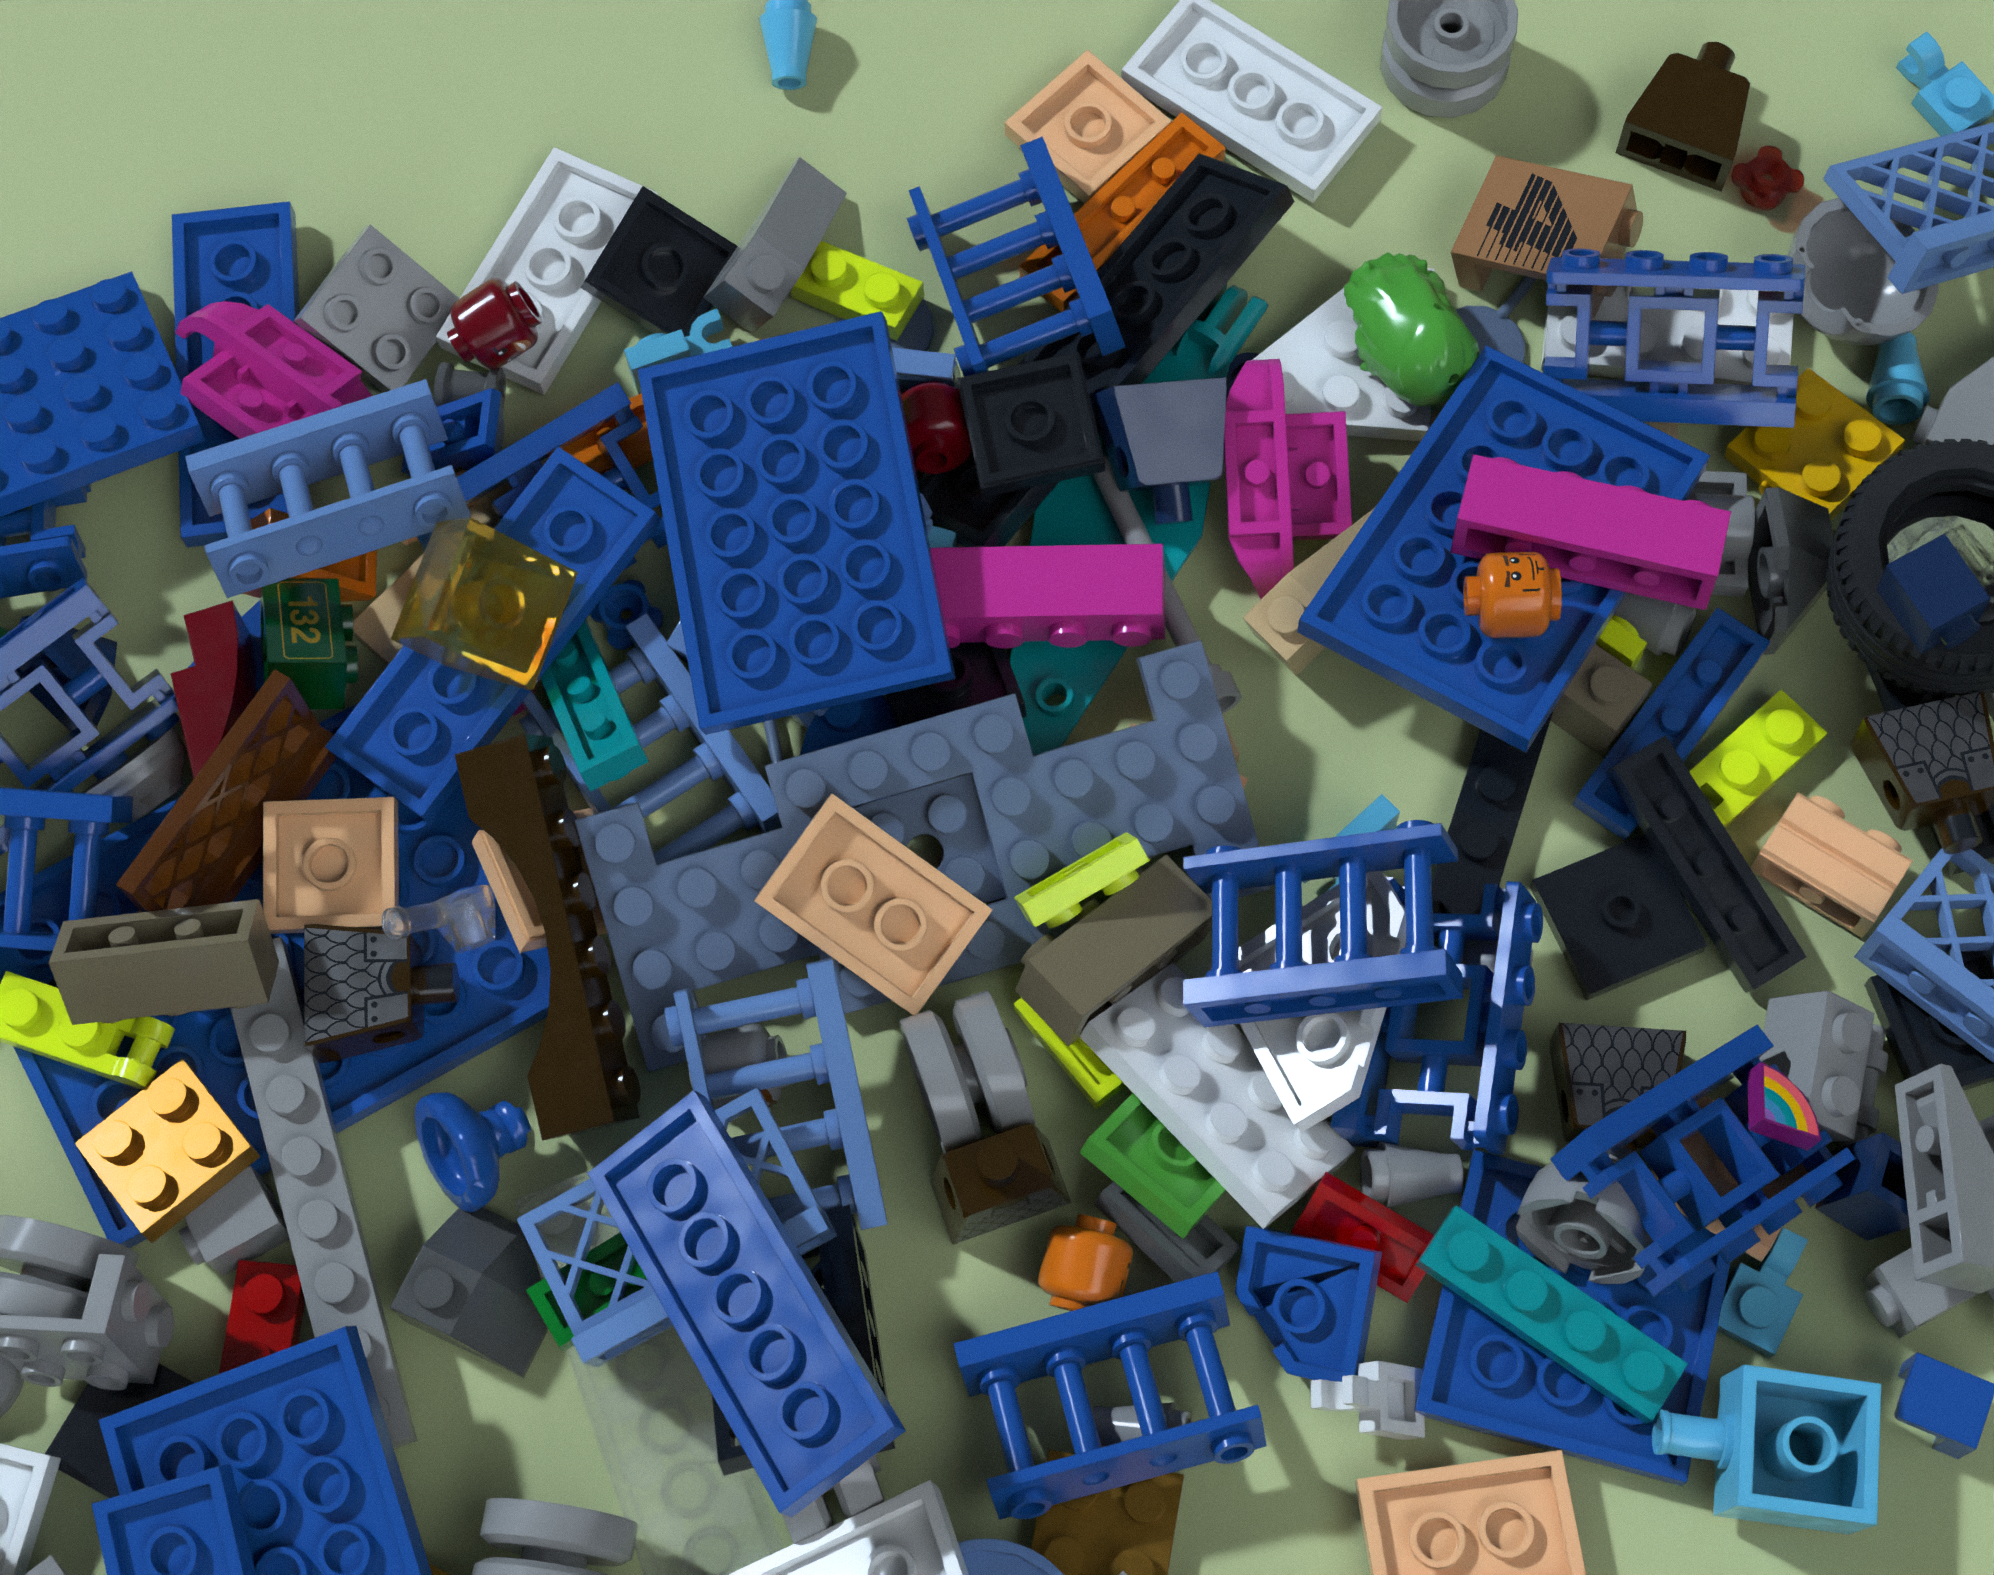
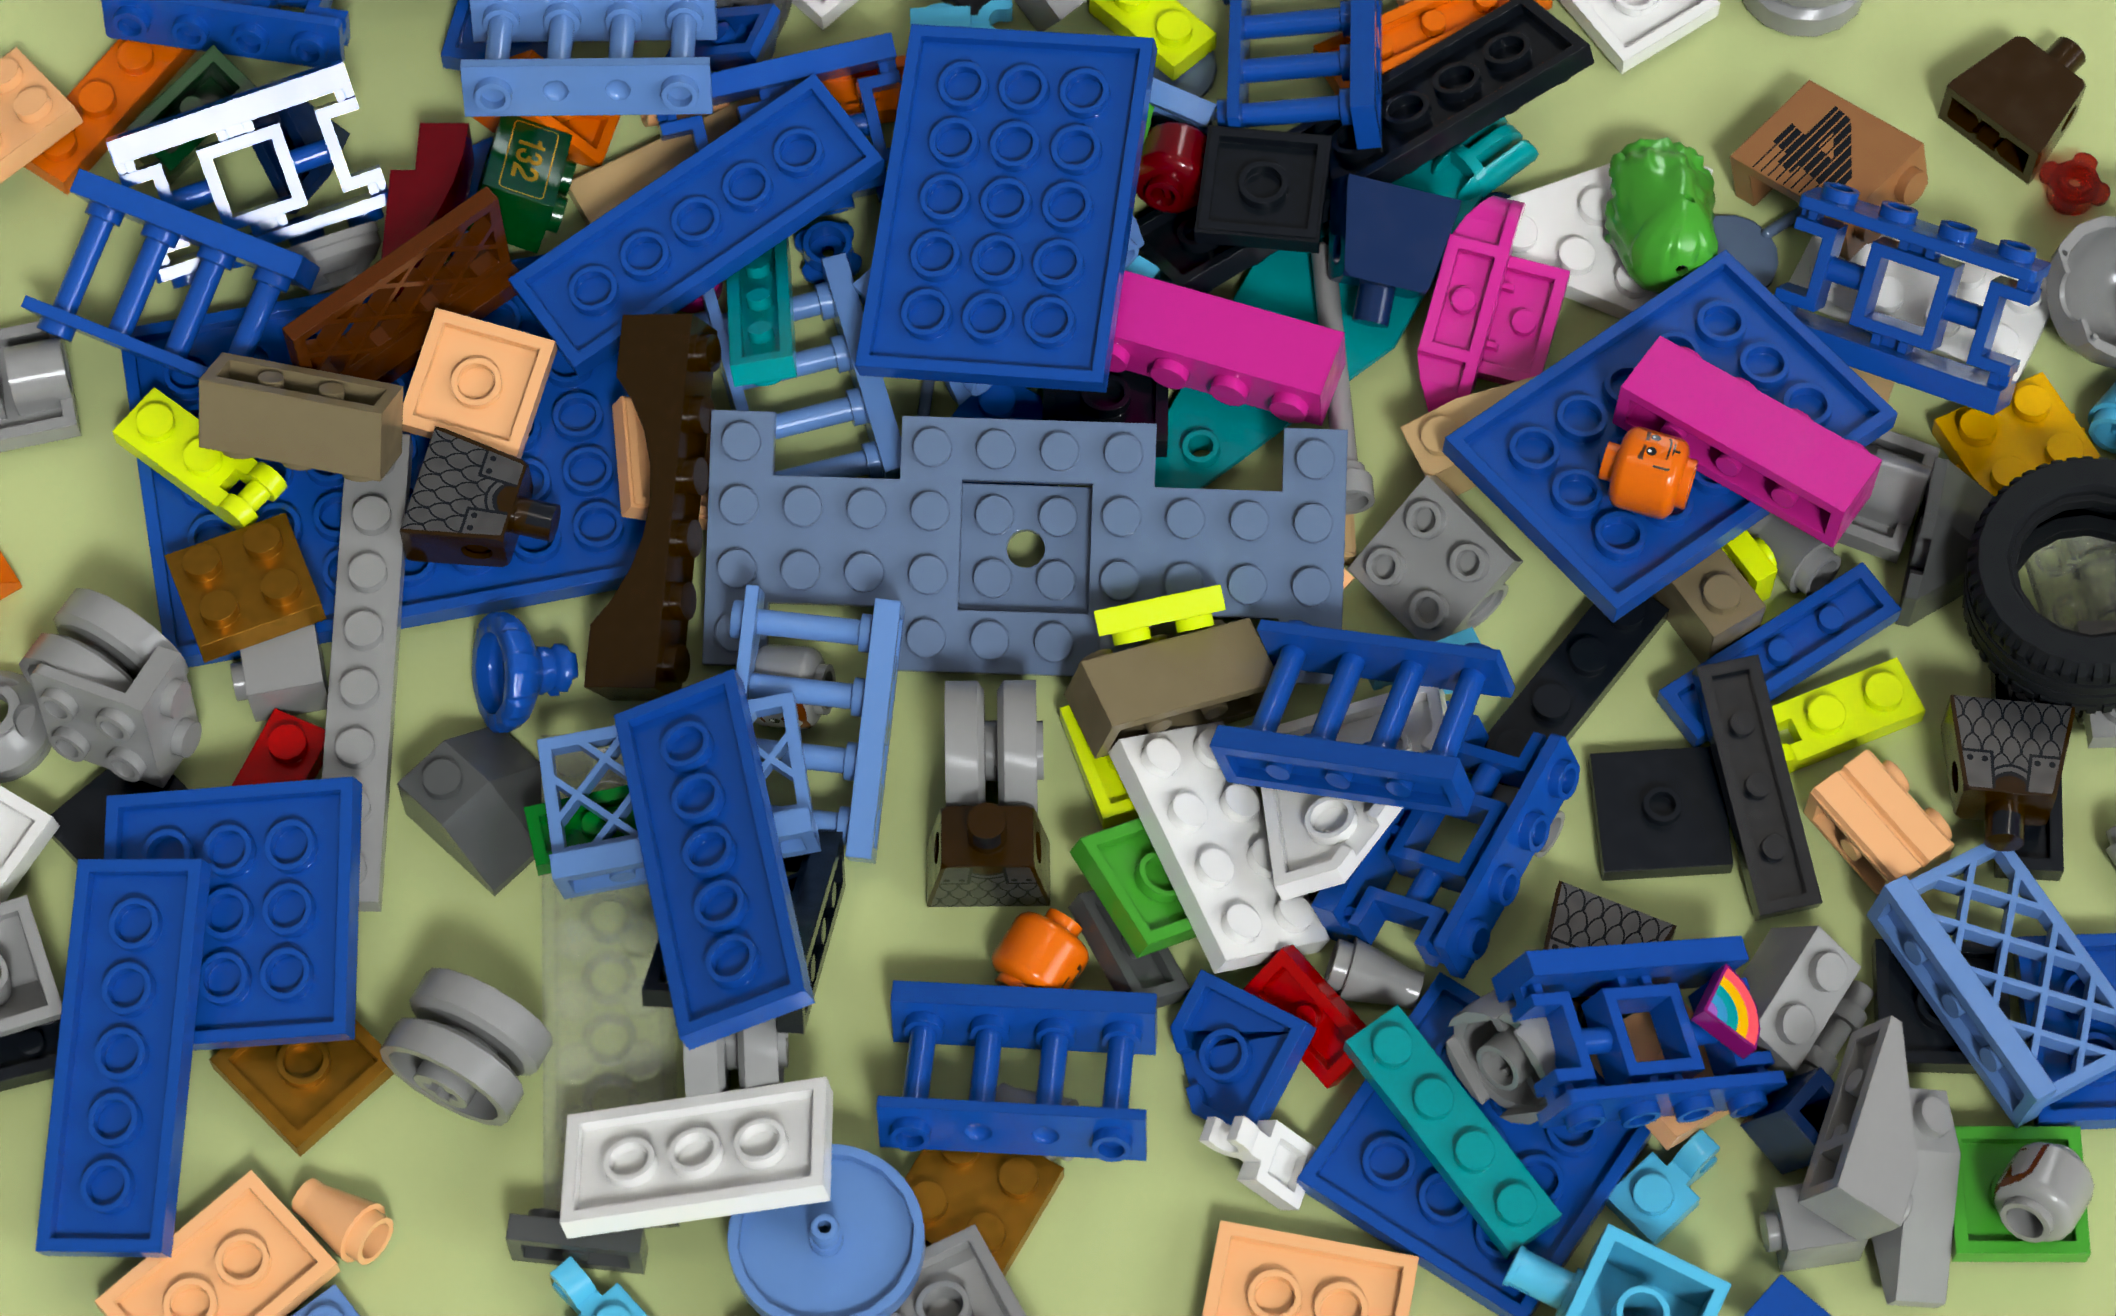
camera: 15 degrees right, 5 degrees down
(462, 918) = (579, 466): clear bar -> none
(484, 603) = (697, 191): clear yellow slope -> none
(873, 905) = (958, 571): light nougat plate -> none
(1321, 742) = (1436, 564): none -> light grey plate
(1934, 595) = (2038, 588): dark blue brick -> none

